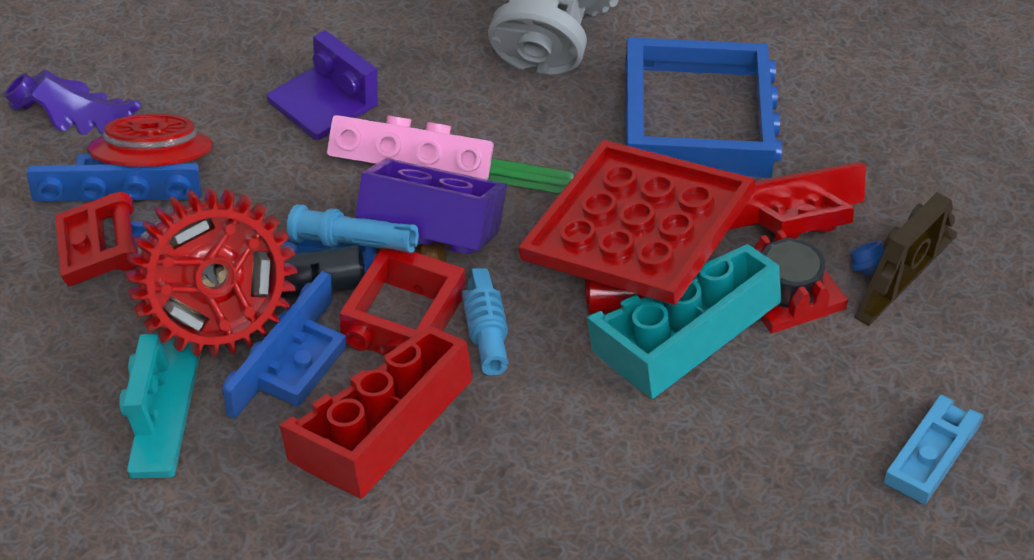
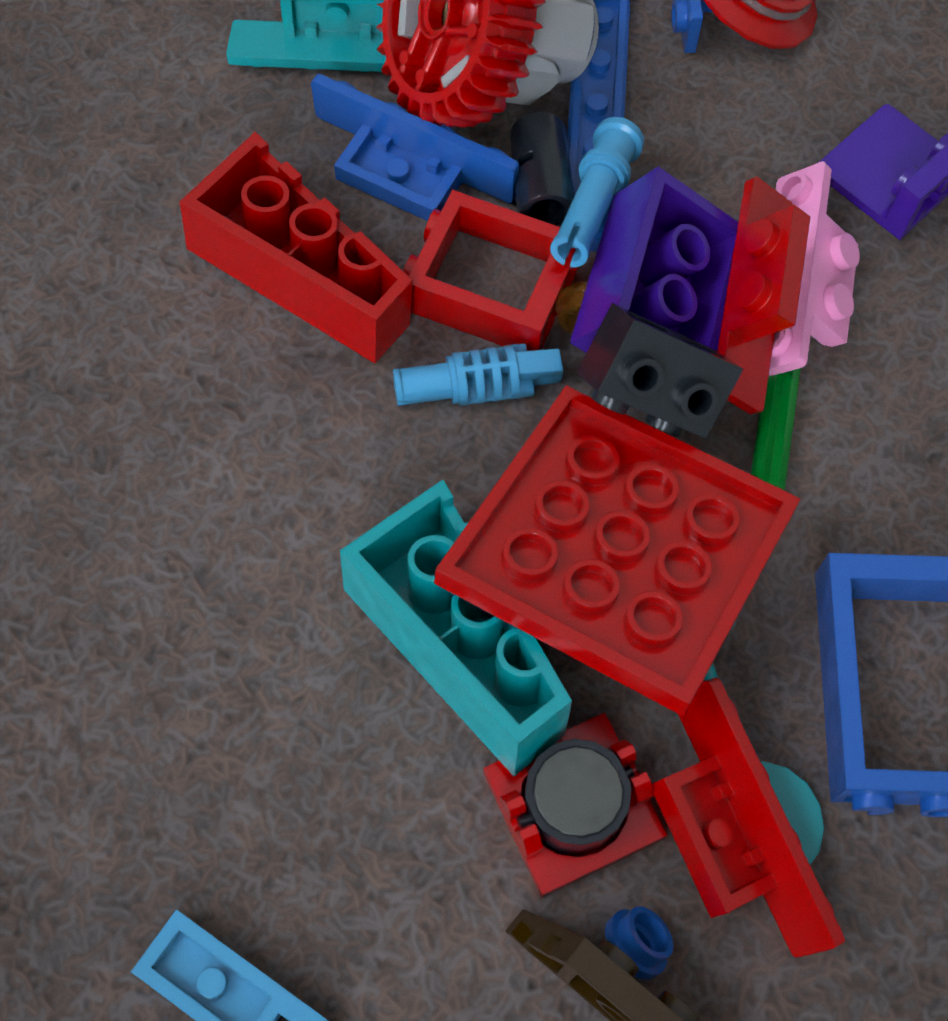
camera: 90 degrees right, 20 degrees up
(444, 137) = (761, 287): none -> red bracket
(521, 189) = (658, 373): none -> black brick

